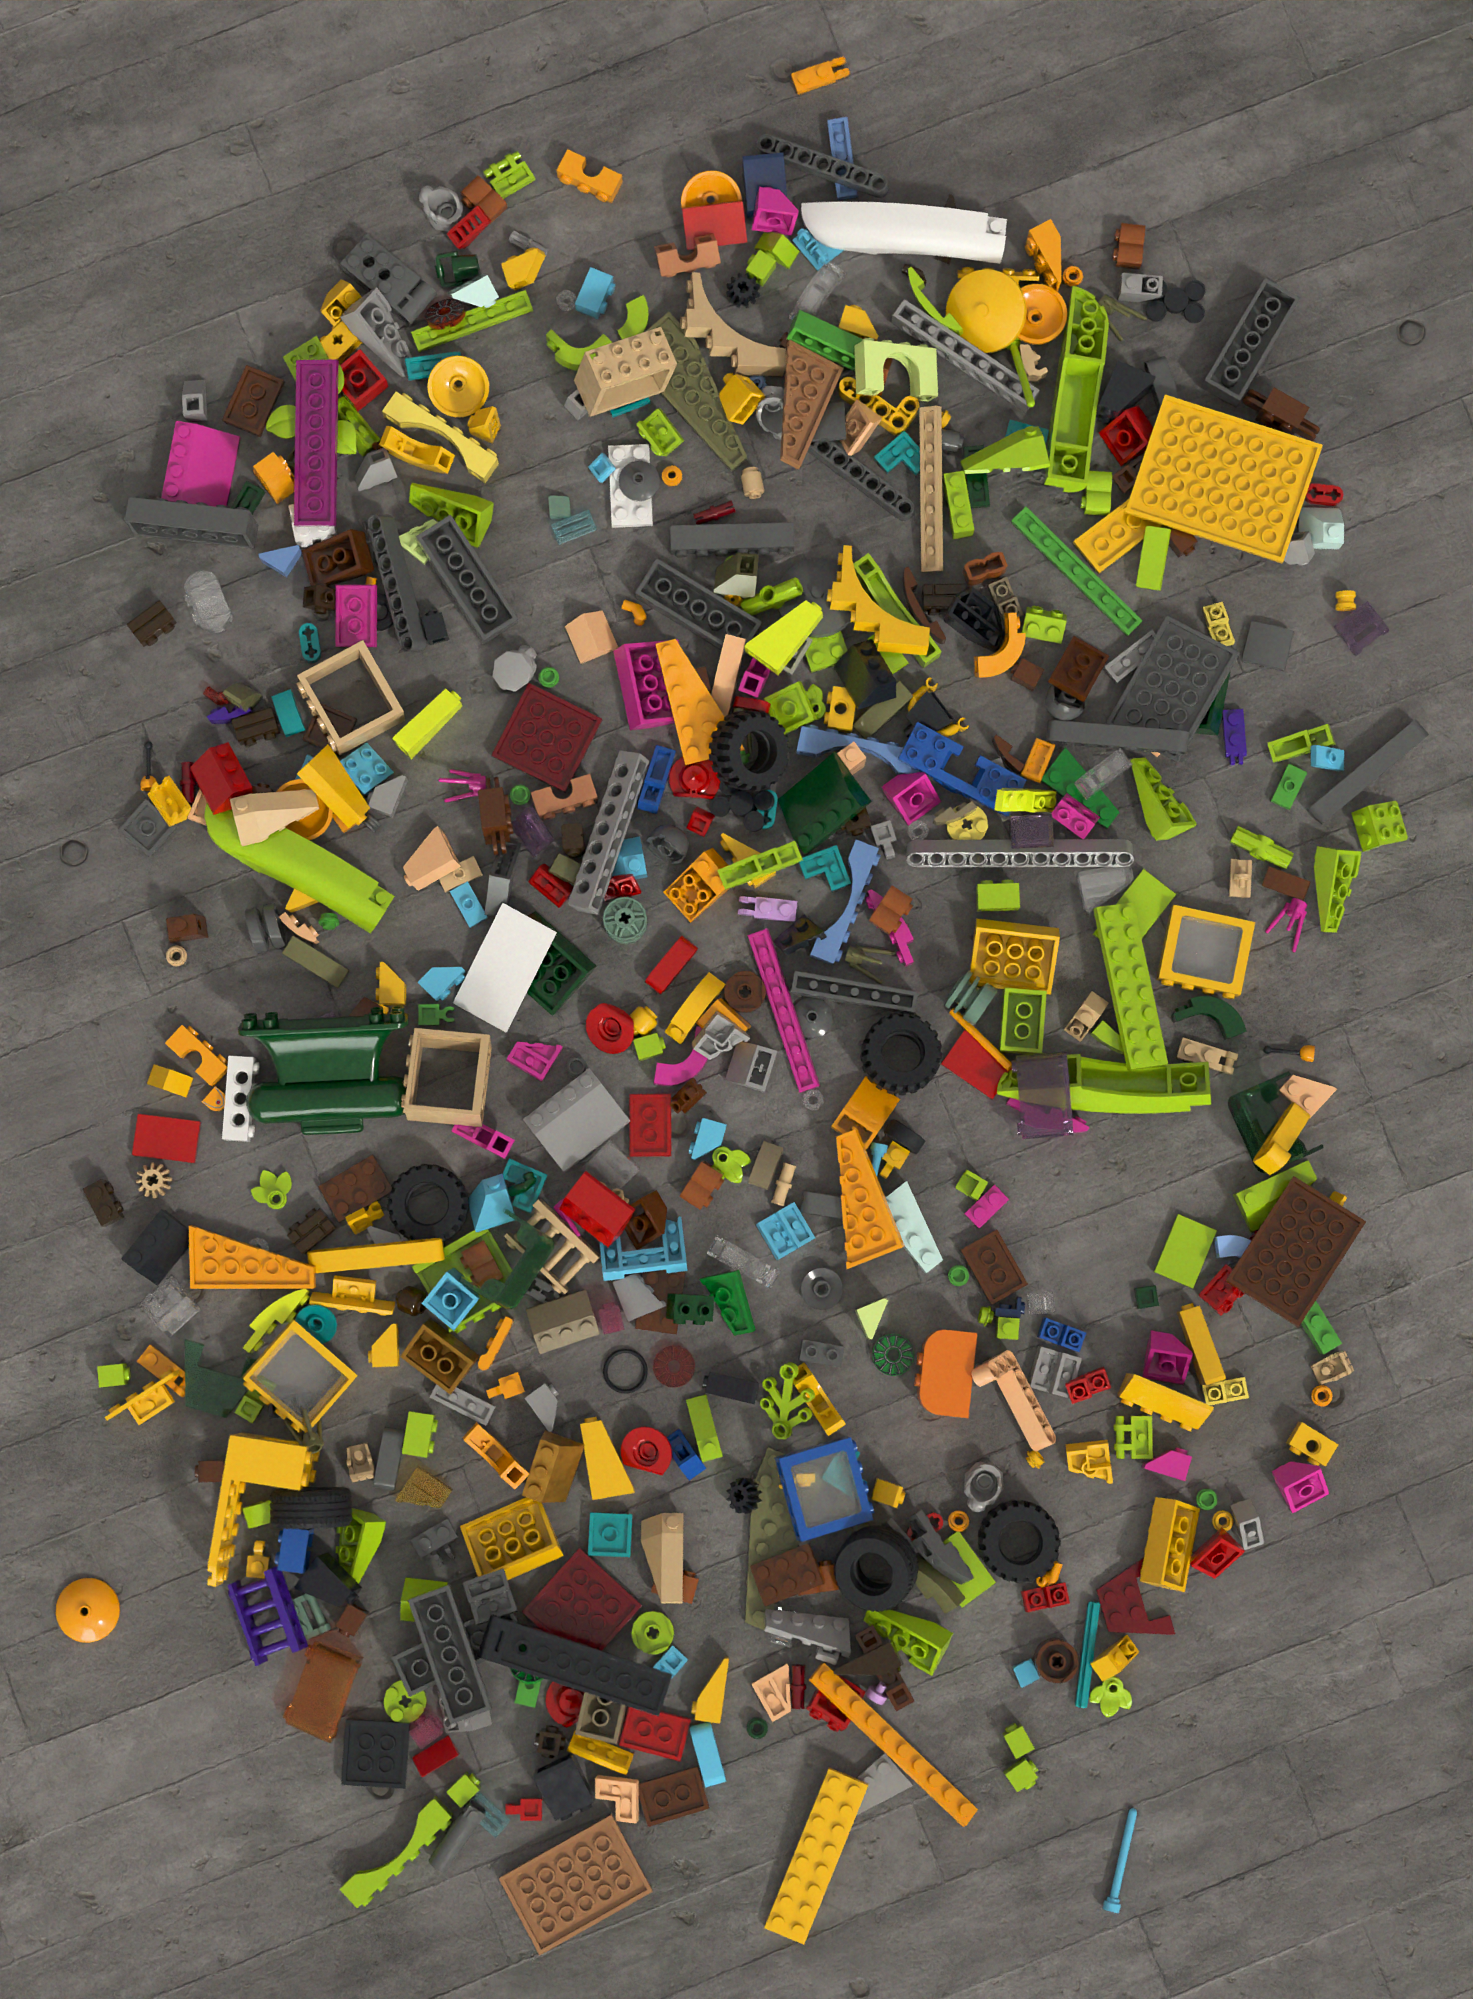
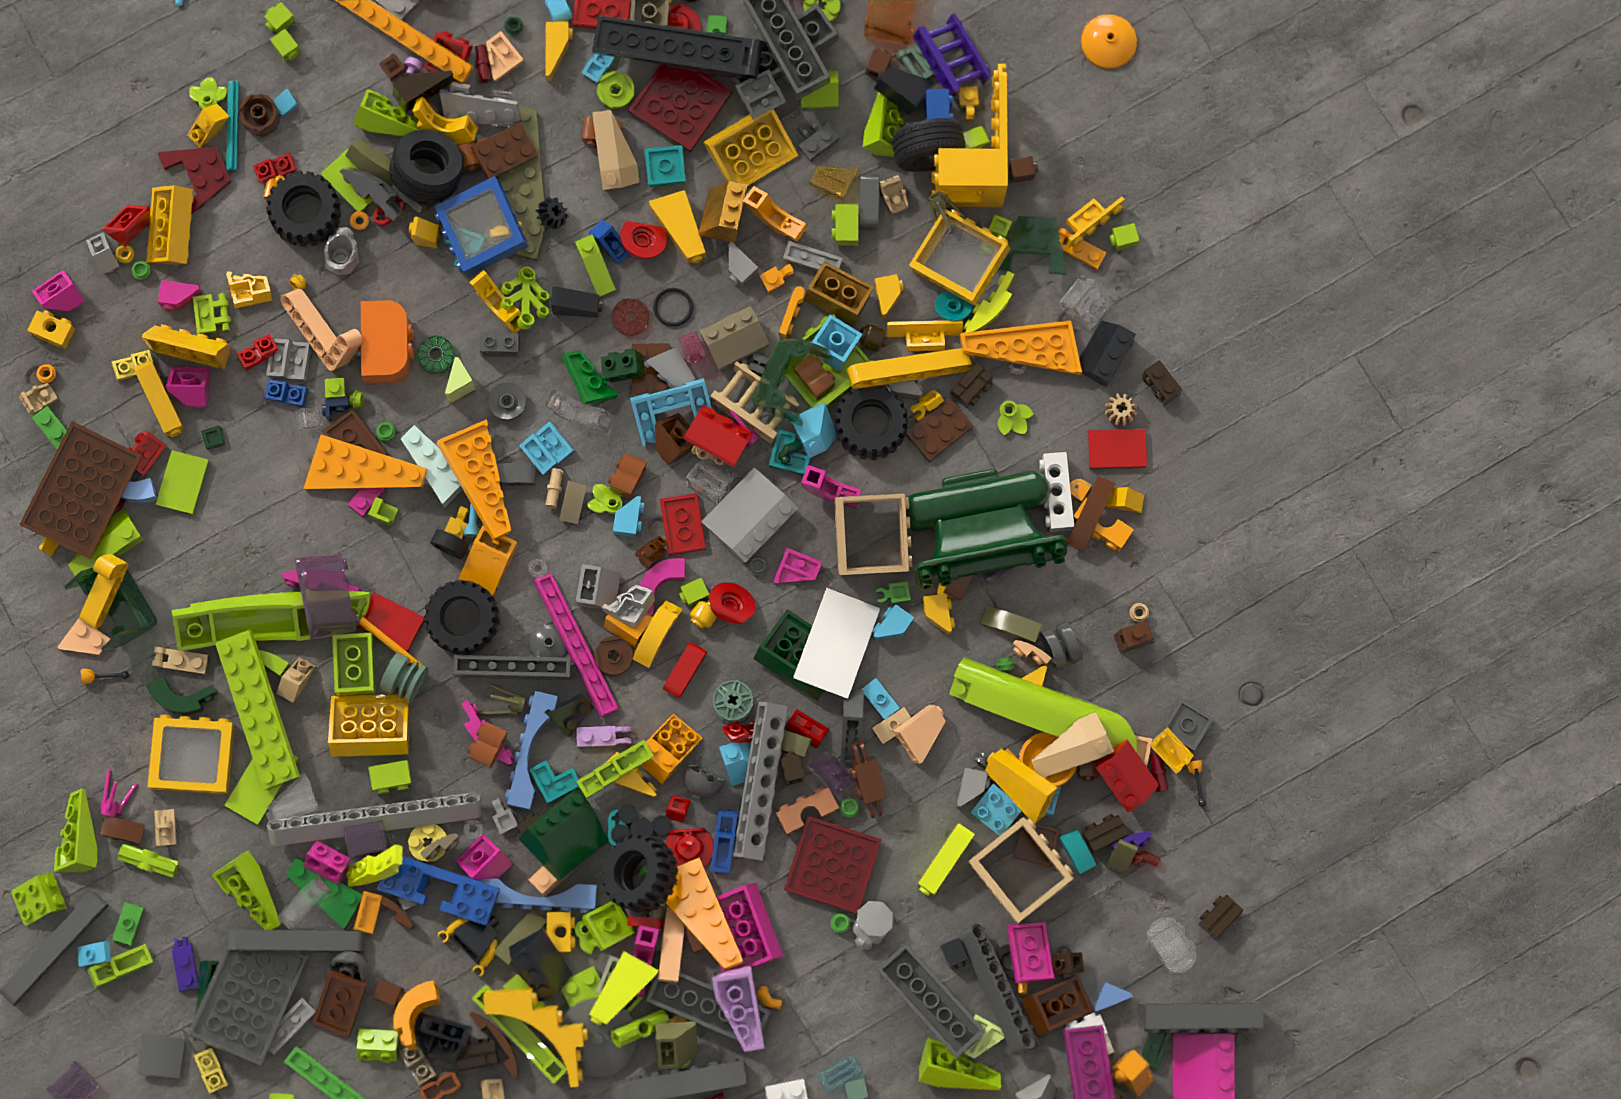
camera: 170 degrees right, 5 degrees down
(206, 1068) = (1090, 513): none -> reddish brown slope
(315, 642) = (1065, 924): teal beam -> none
(476, 782) = (891, 811): dark pink plant -> none
(591, 636) = (806, 968): light nougat slope -> none
(666, 603) = (737, 998): none -> lavender wedge
(837, 1608) = (460, 130): none -> yellow arch
(998, 1237) = (353, 467): none -> light orange wing

